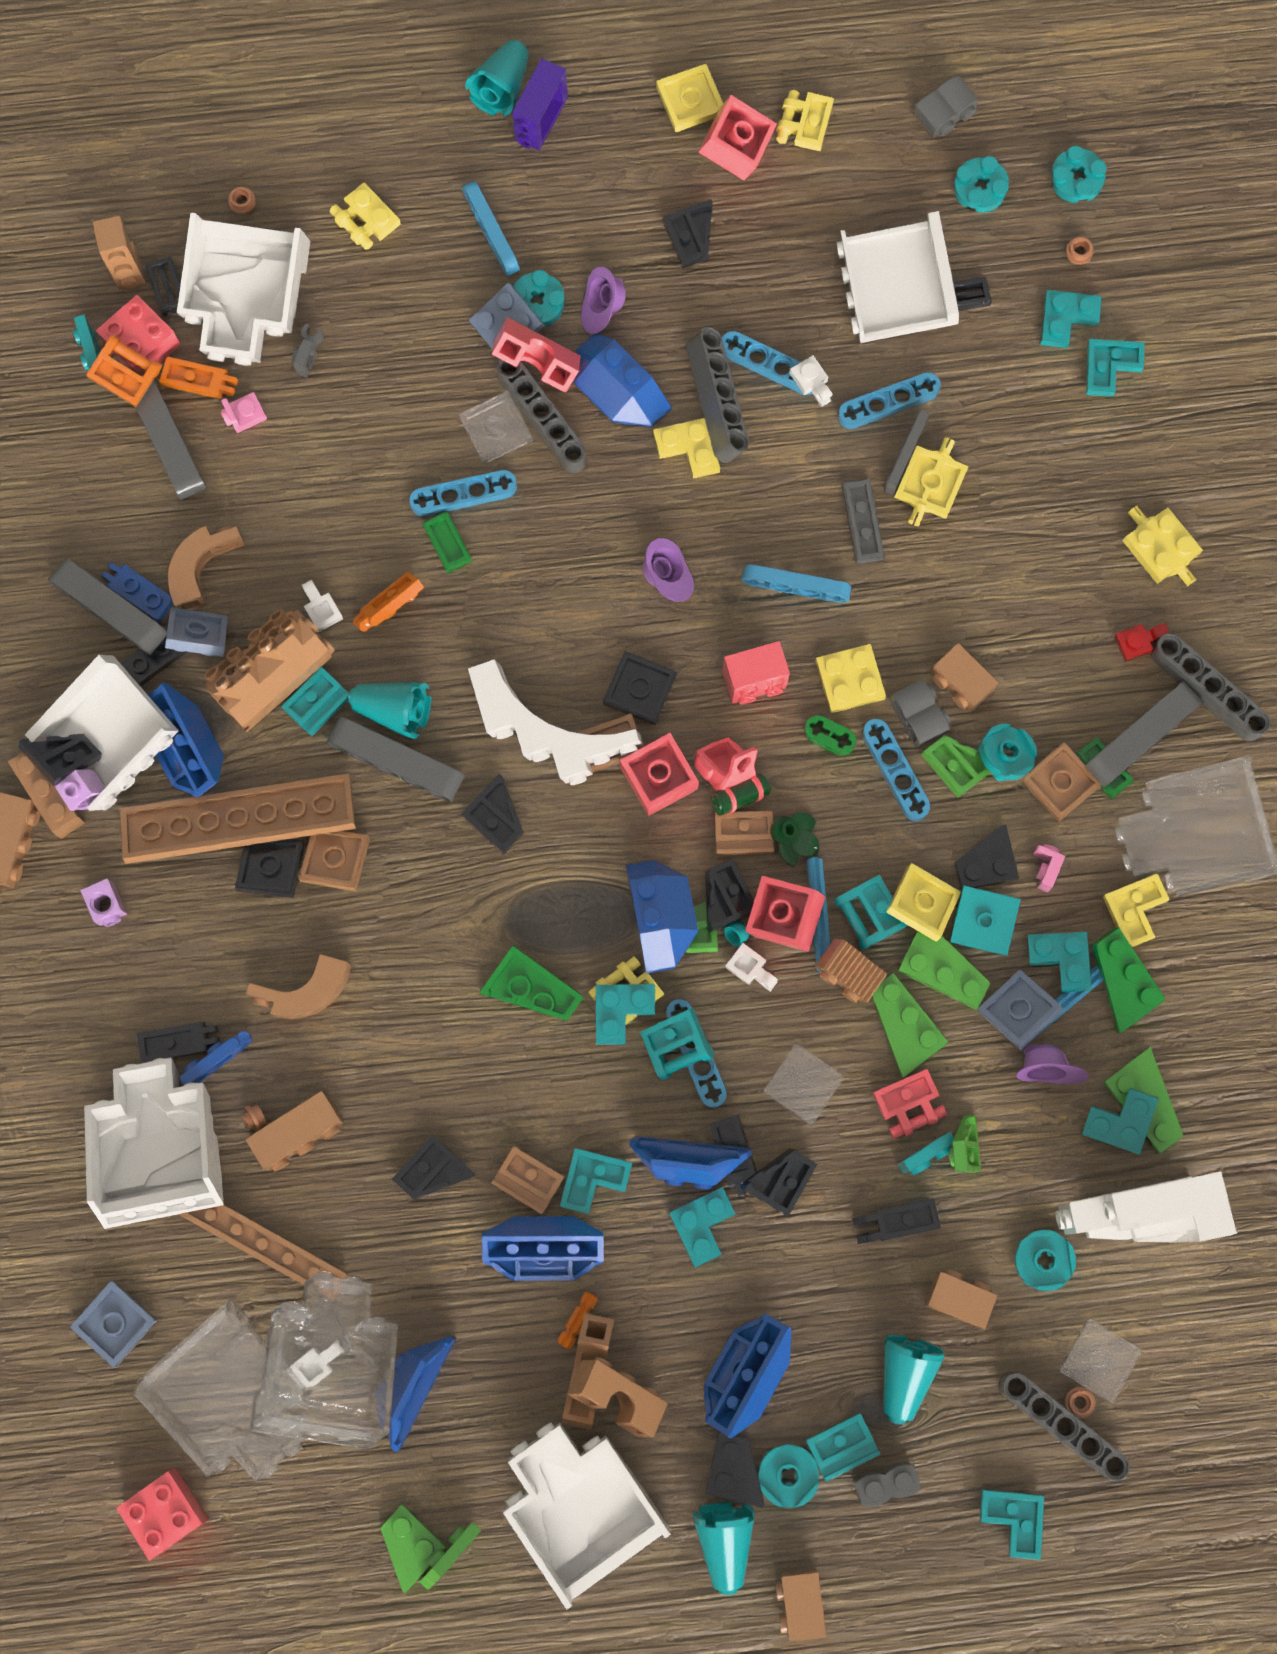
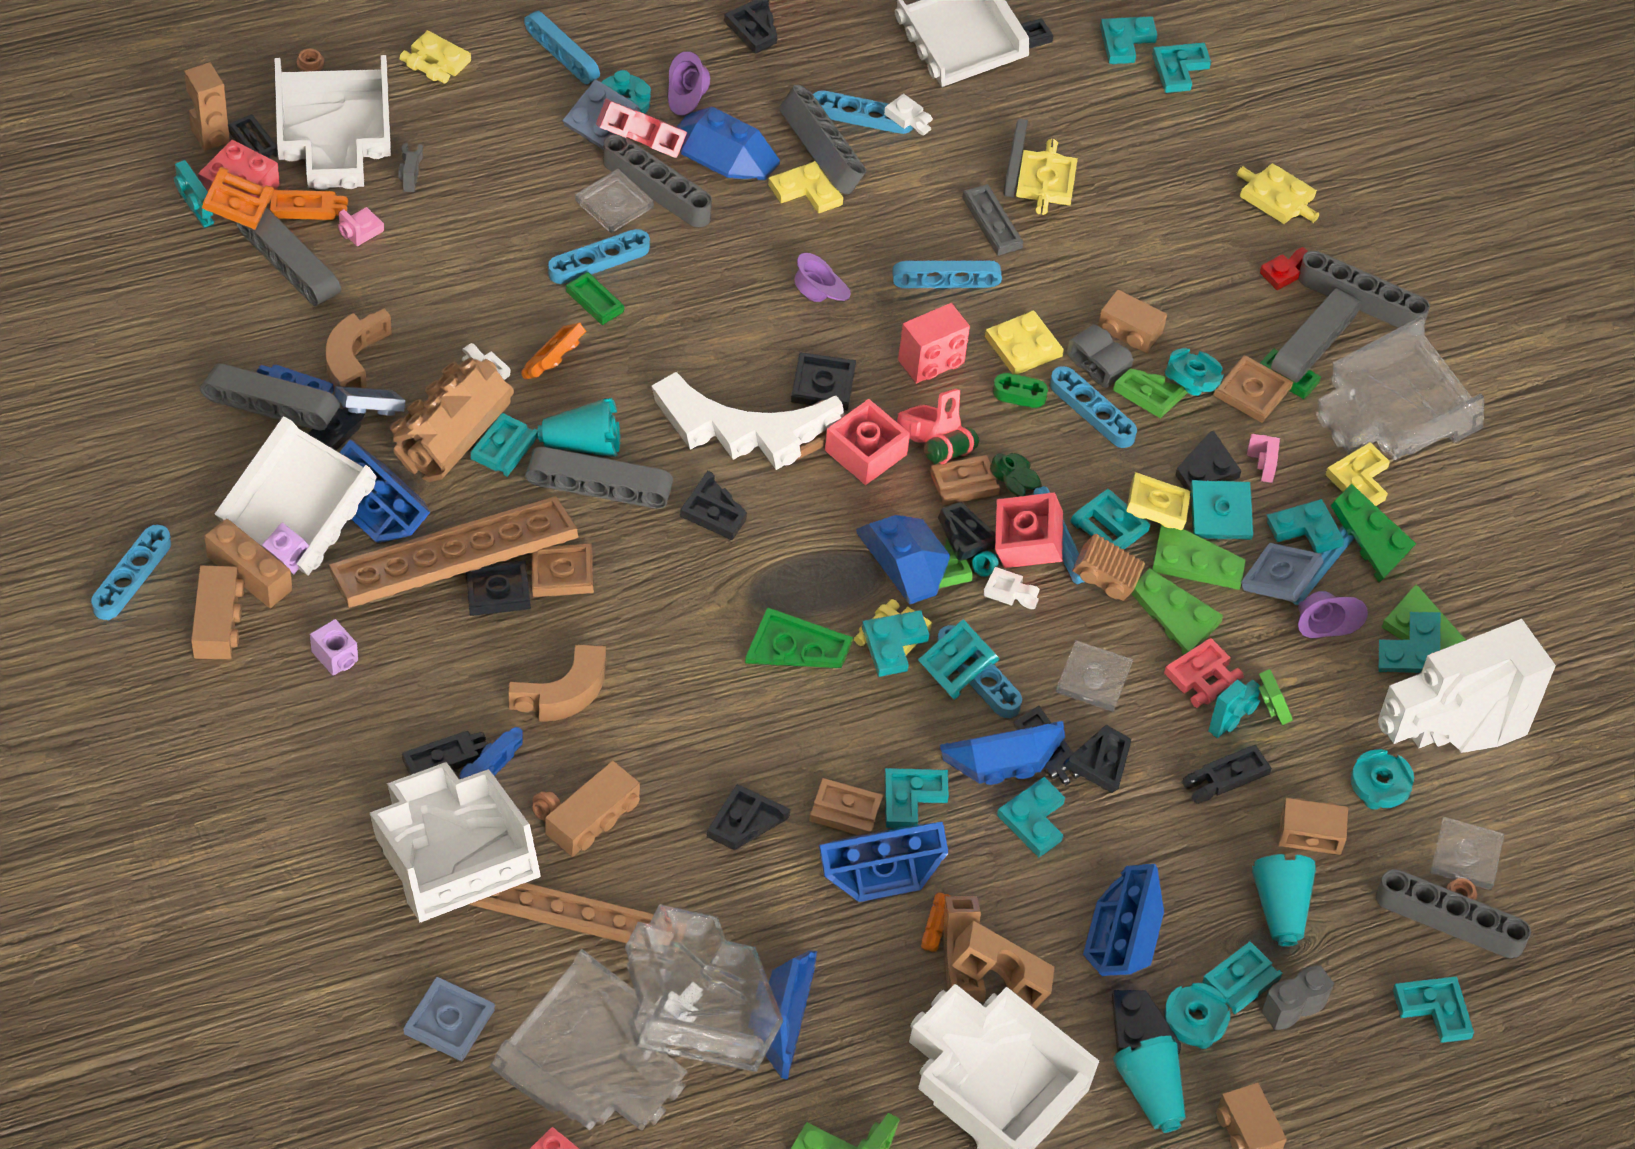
camera: 20 degrees left, 25 degrees down
(60, 755) = (258, 520): black wing -> none
(887, 397) = (981, 120): dark azure beam -> none

